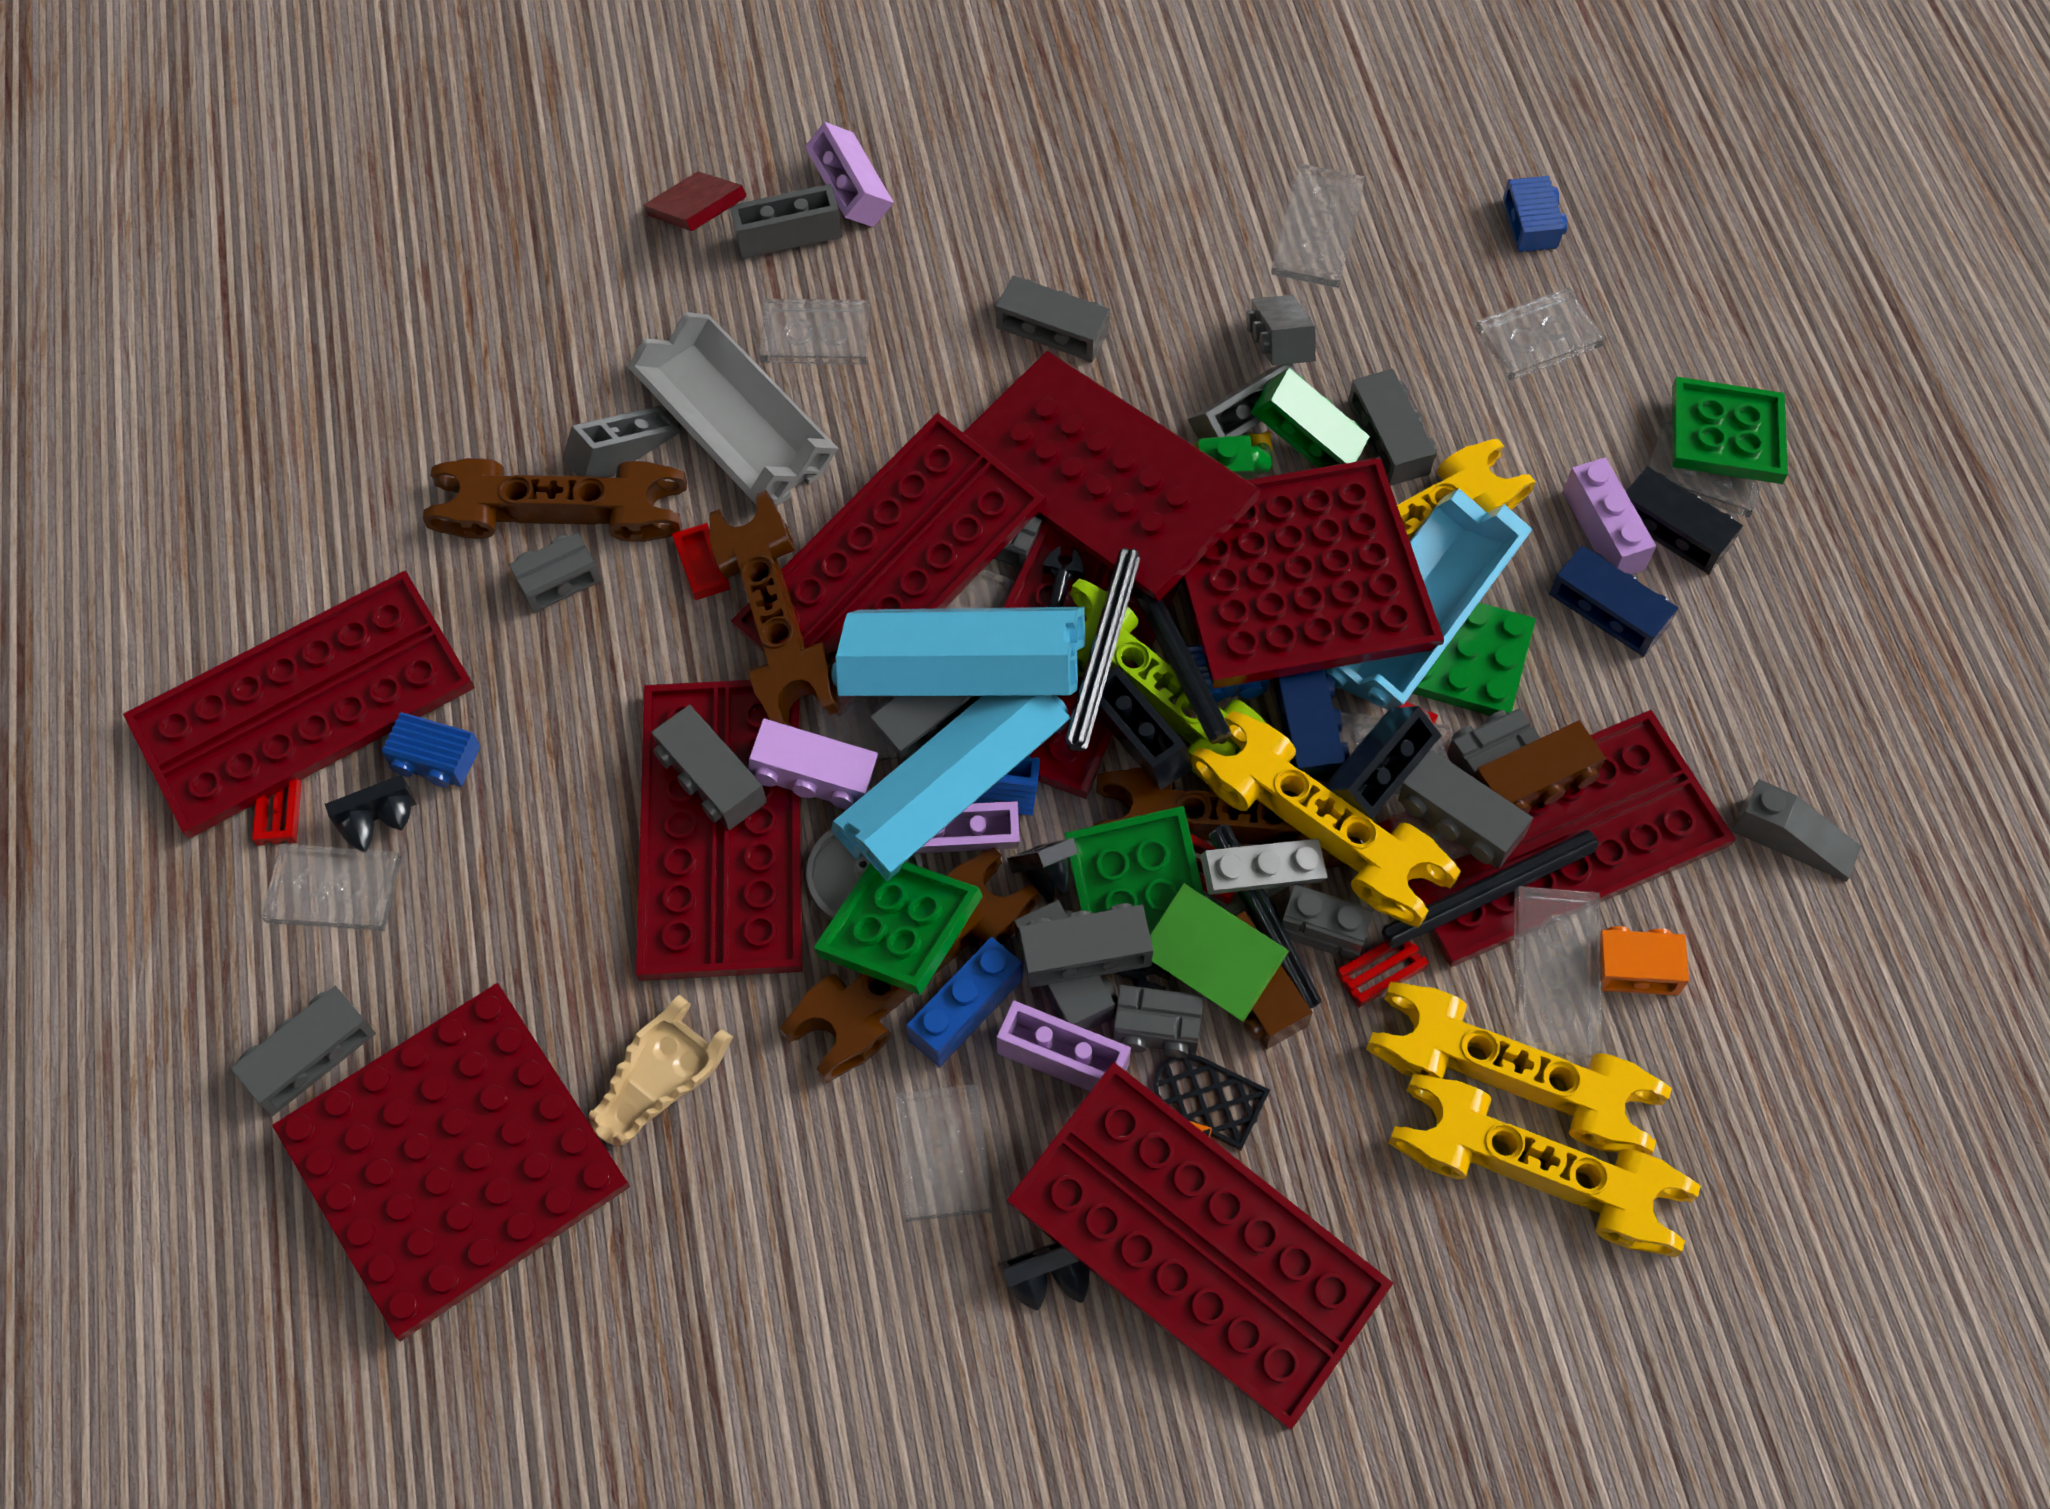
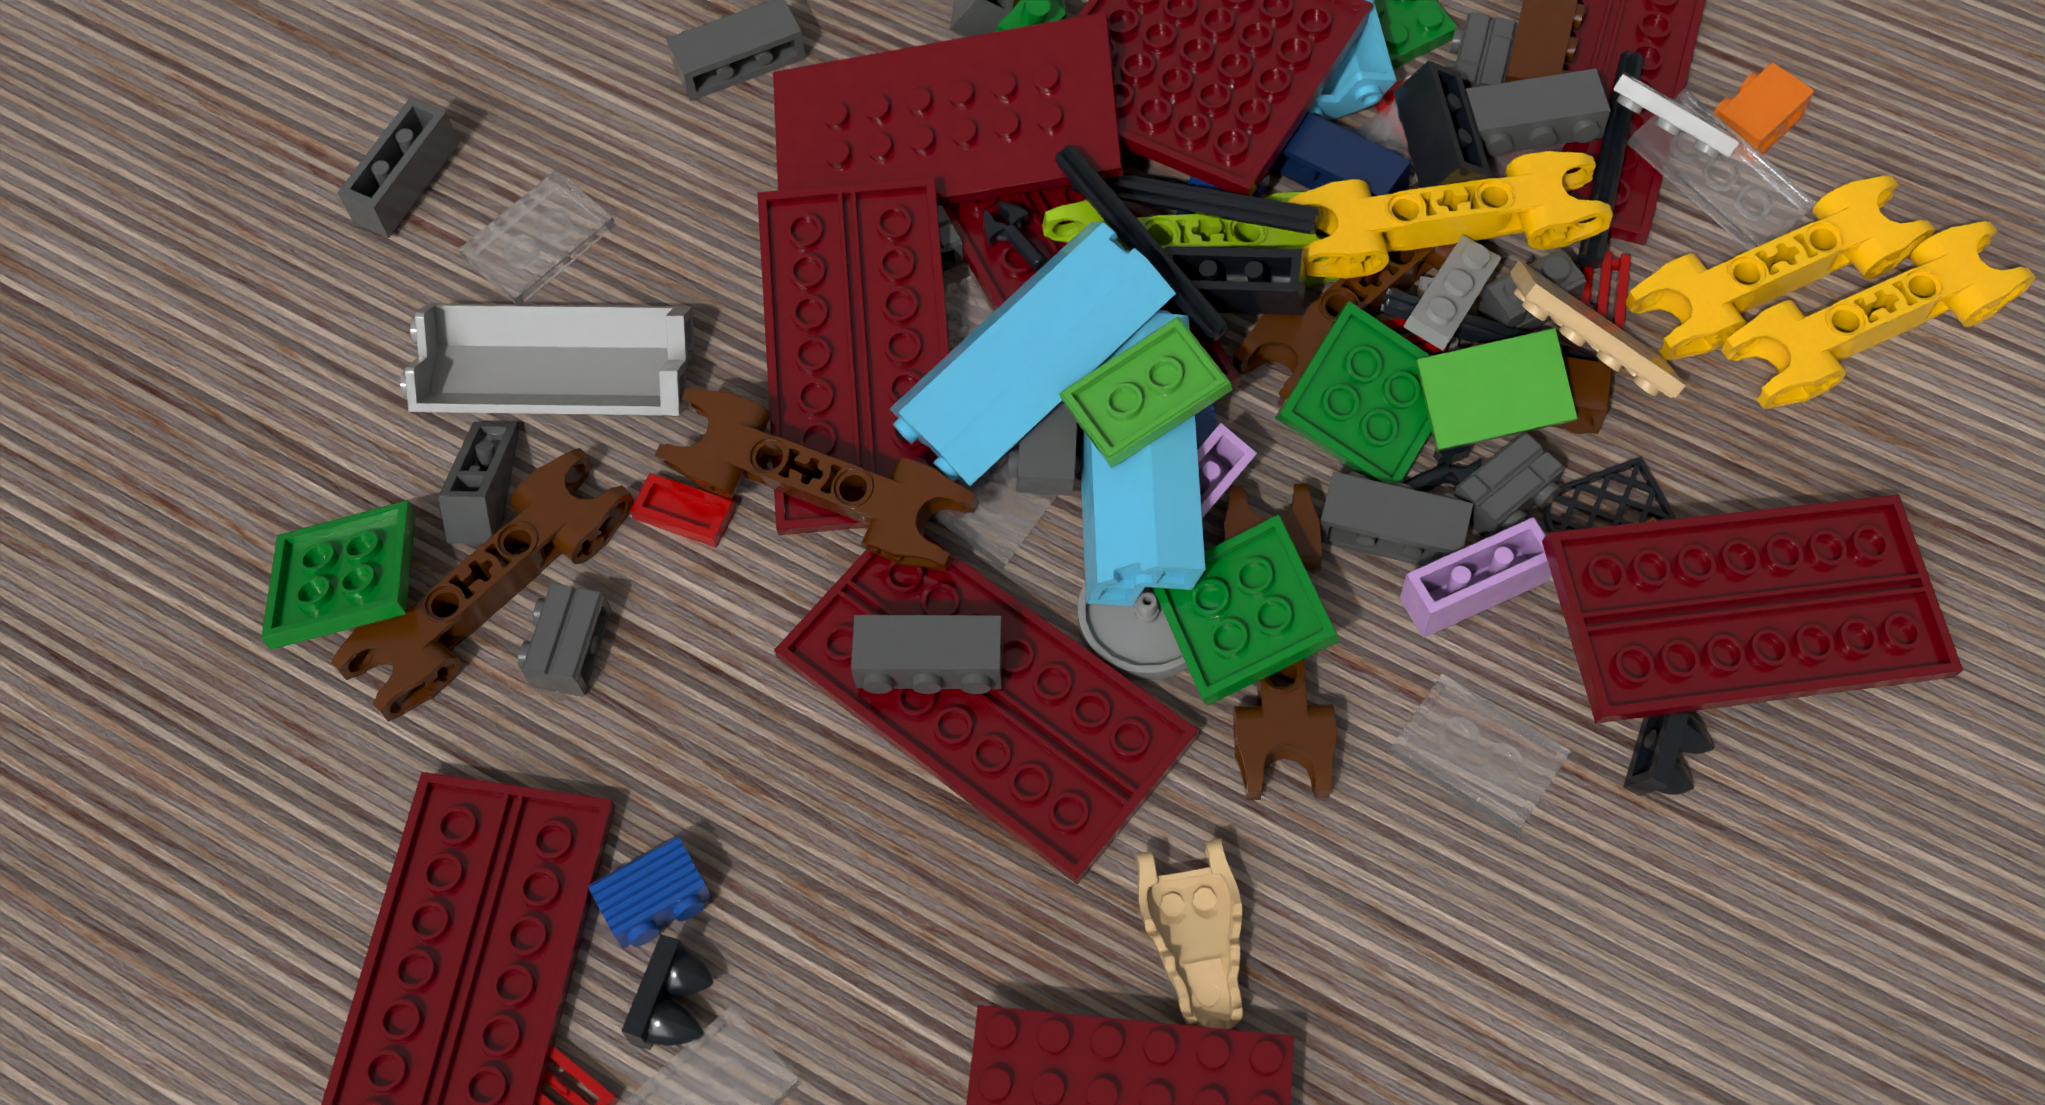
camera: 45 degrees left, 0 degrees up
(488, 423) = (339, 575): none -> green plate
(695, 201) = (291, 220): dark red tile -> none
(811, 764) = (1010, 564): lavender brick -> none
(850, 173) = (397, 77): lavender brick -> none
(965, 1002) = (1359, 616): blue brick -> none
(981, 735) = (1145, 392): none -> bright green tile
(1046, 866) = (1281, 450): black tile -> none
(1085, 945) = (1405, 477): dark grey brick -> none
(1317, 978) = (1583, 324): none -> tan tile
(1557, 900) = (1675, 117): none -> plate

